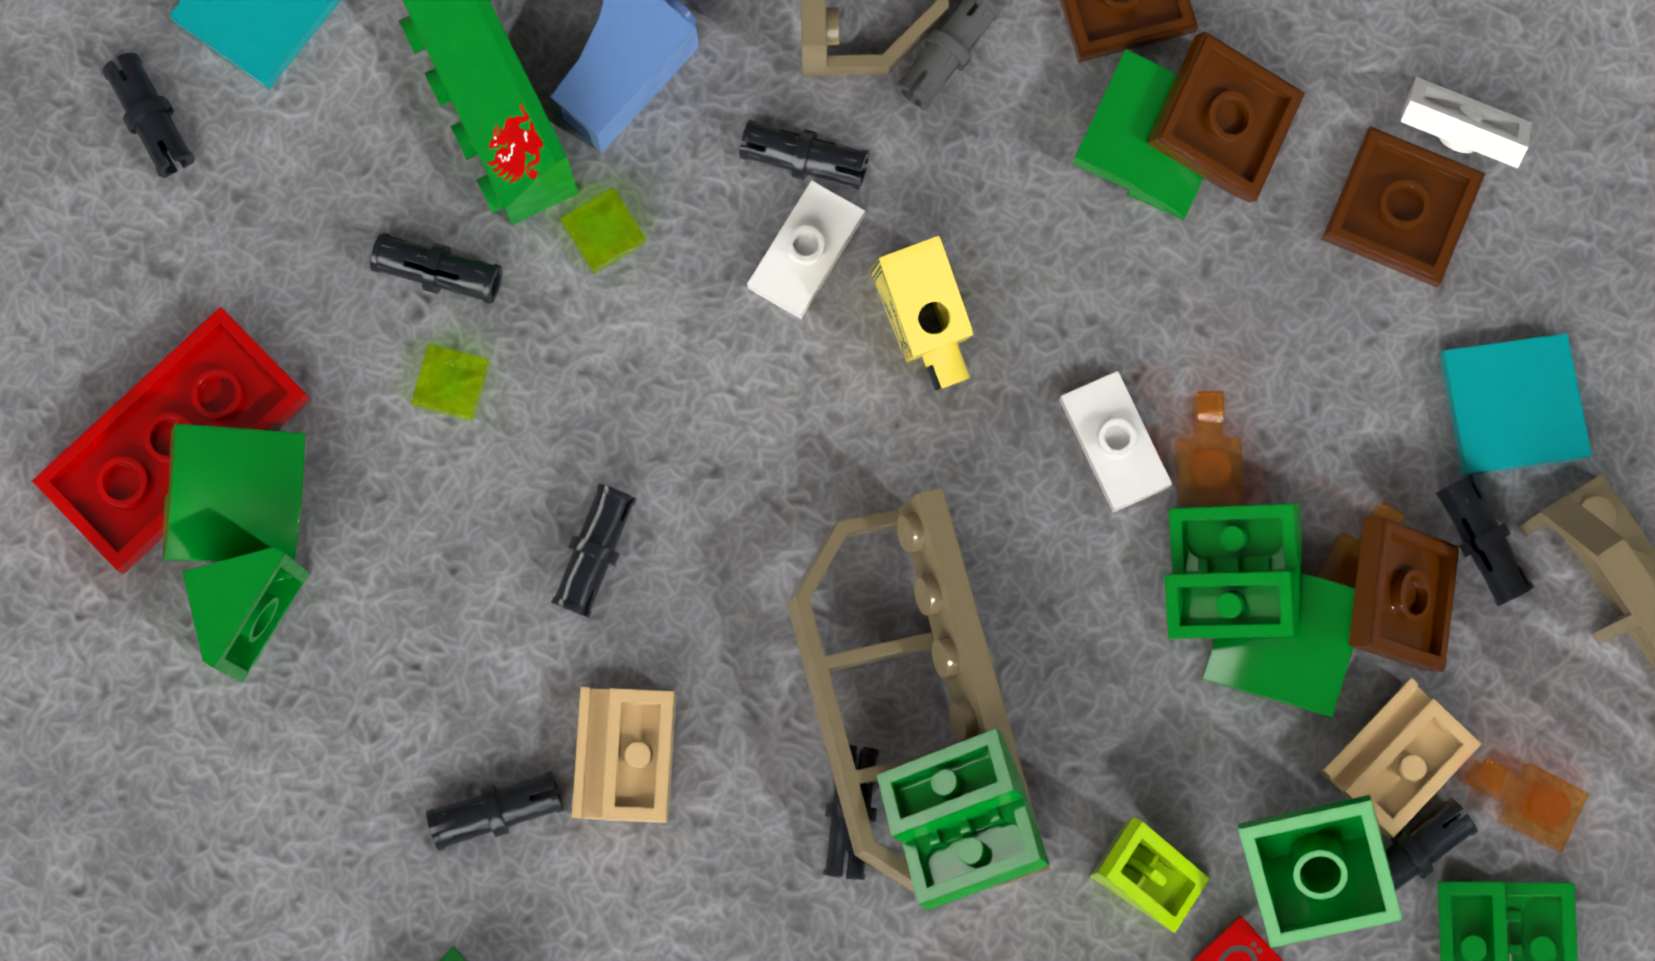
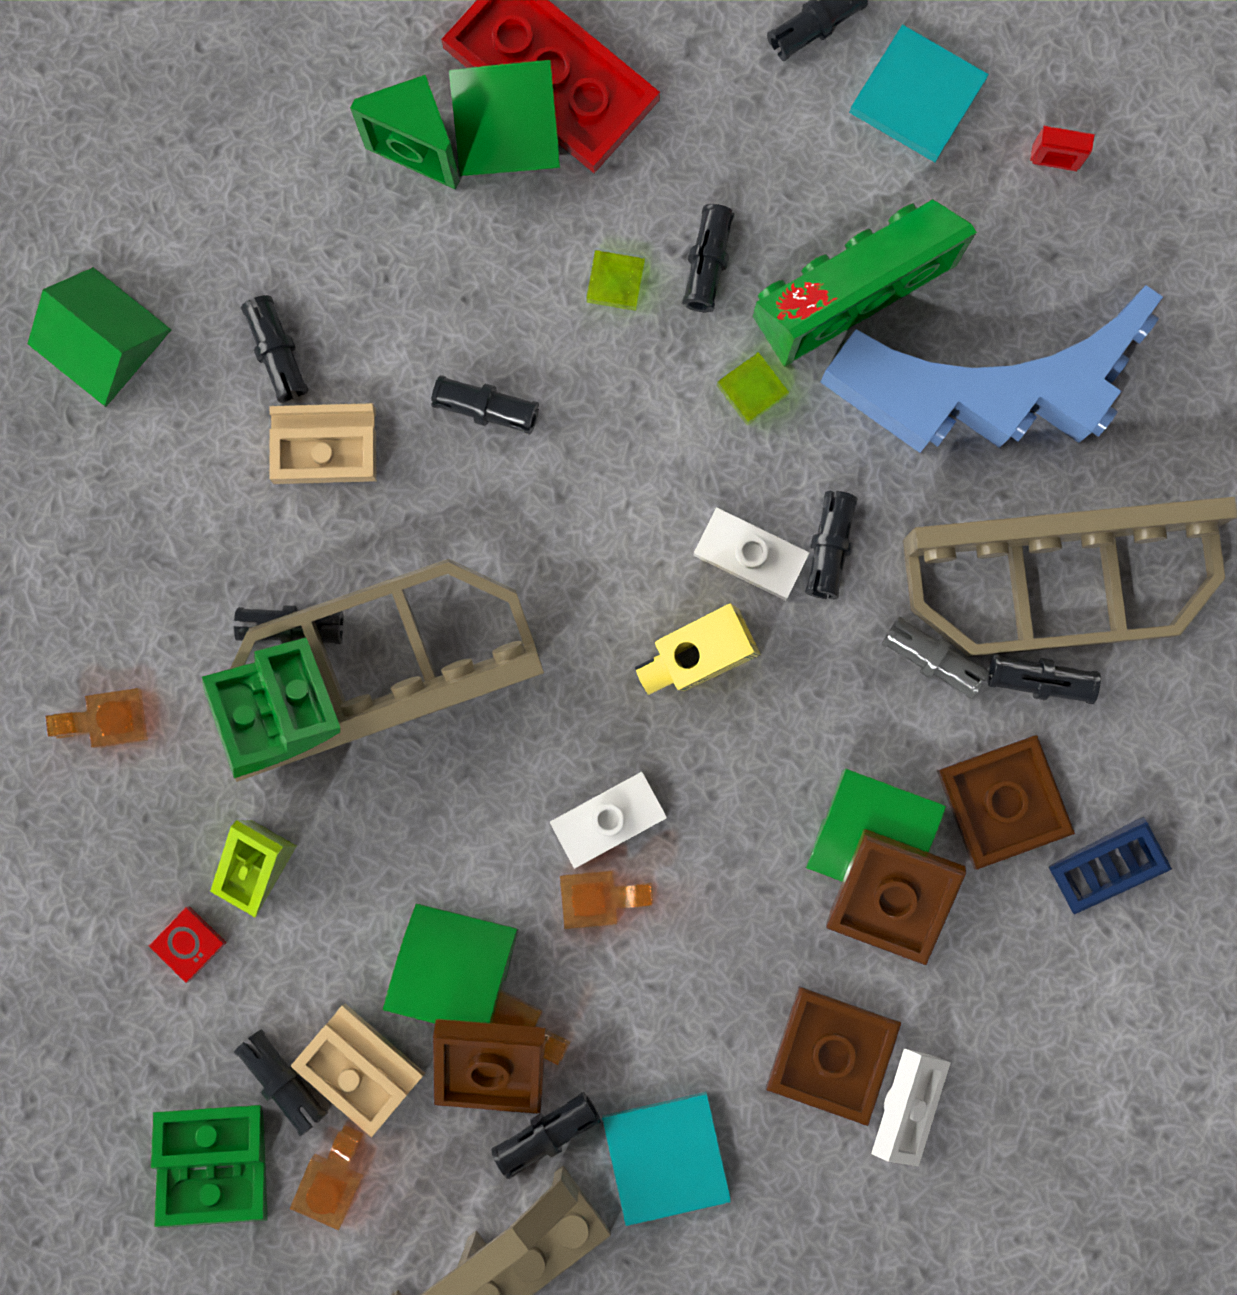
camera: 85 degrees right, 5 degrees up
(1234, 571) = (501, 923): green slope -> none
(1320, 871) = (251, 1006): green slope -> none

